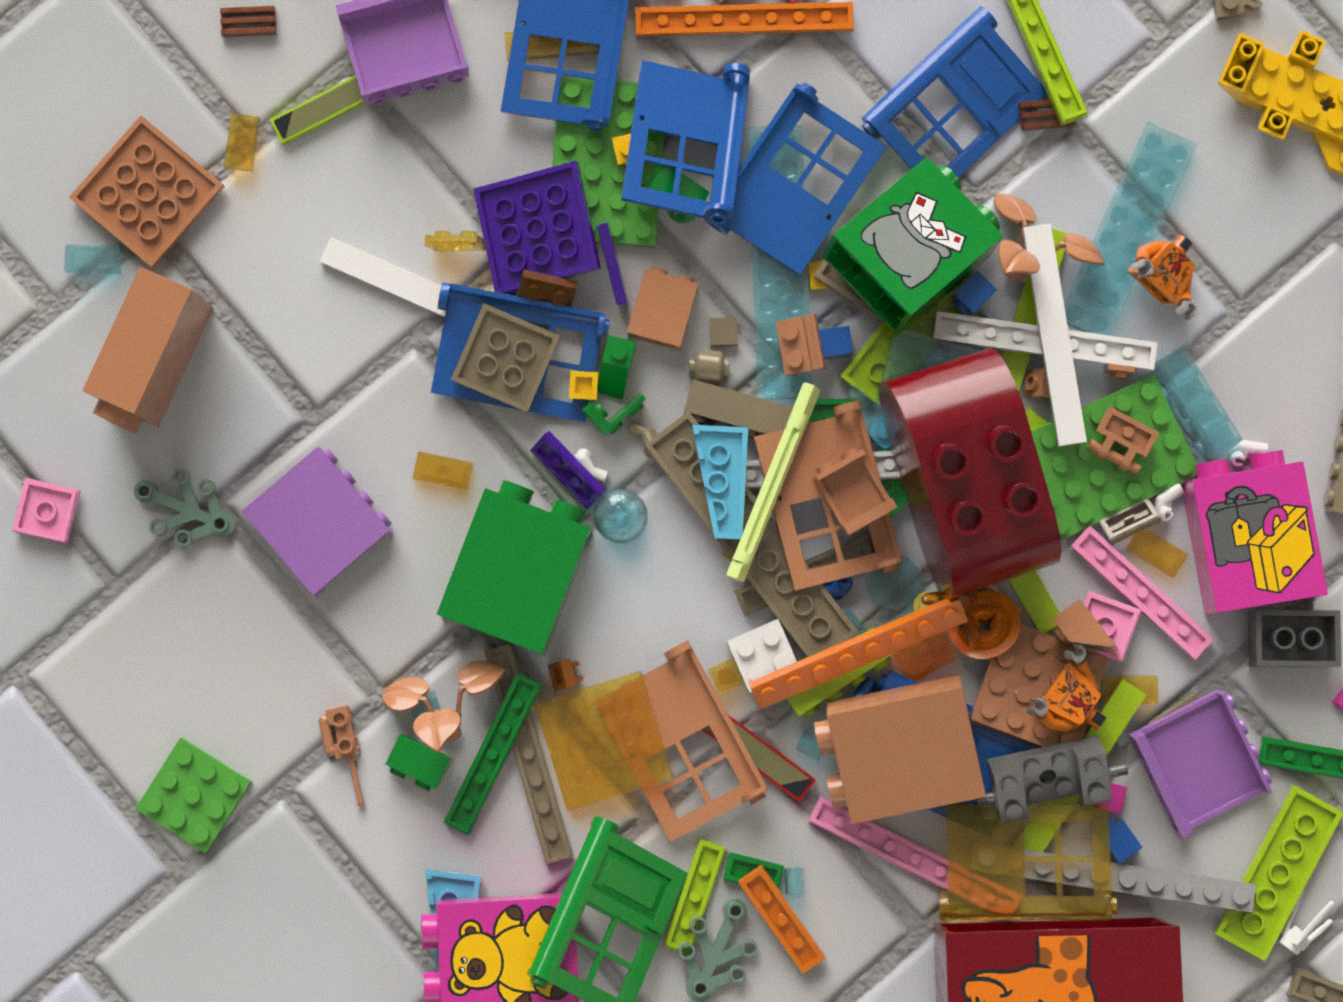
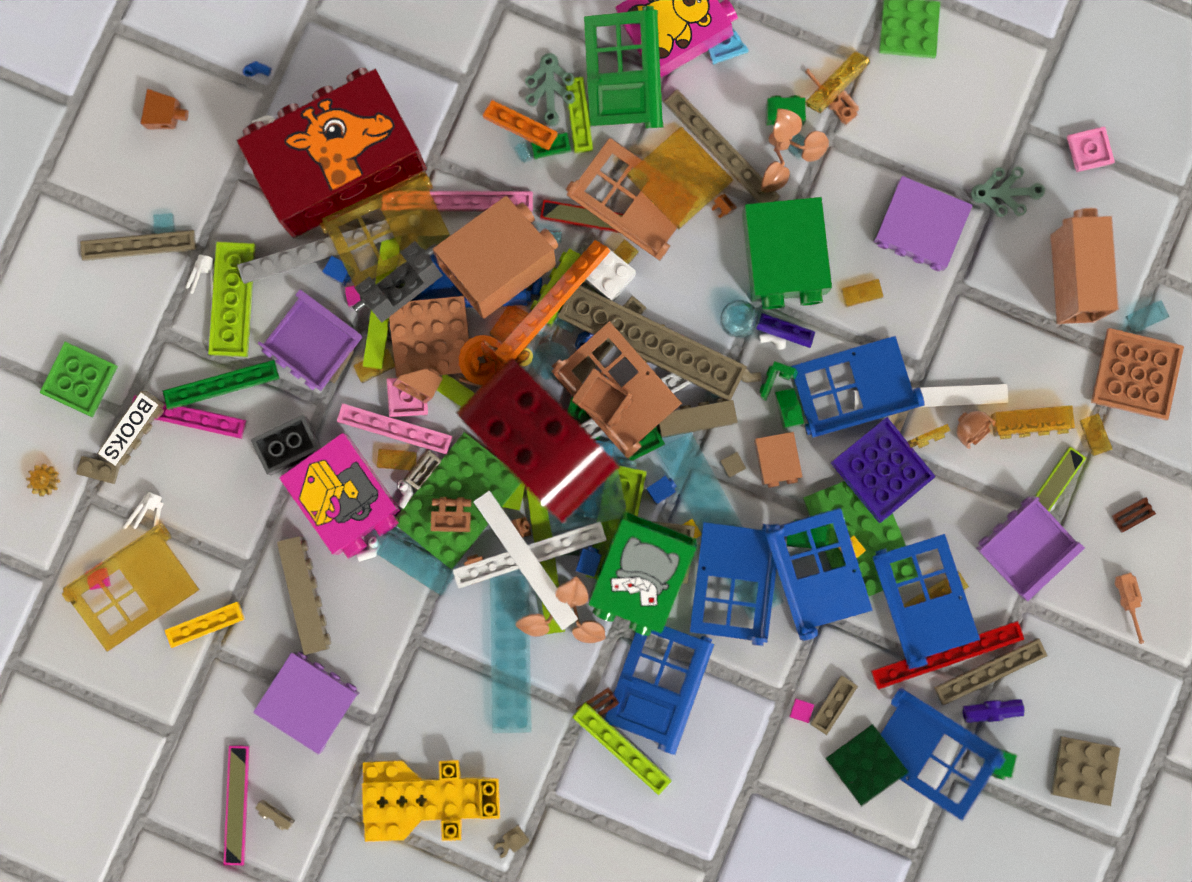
camera: 155 degrees right, 0 degrees up
(313, 197) = (1033, 421): none -> clear yellow brick
(329, 765) = (837, 82): none -> clear yellow plate
(393, 226) = (973, 427): none -> nougat cylinder
(493, 753) = (743, 138): green tile -> none
(505, 357) = (860, 378): dark tan plate -> none
(546, 288) = (857, 434): reddish brown plate -> none
(583, 385) = (803, 386): yellow plate -> none
(612, 263) = (824, 471): dark purple tile -> none
(709, 367) = (730, 437): dark tan head -> none
(723, 470) = (691, 375): medium azure wing -> none
(744, 19) = (821, 672): orange plate -> none
(773, 482) = (655, 378): yellowish green piece -> none
(800, 345) = (681, 476): nougat plate -> none
(1070, 697) = (409, 336): orange torso -> none
(1167, 273) = (472, 637): orange torso -> none

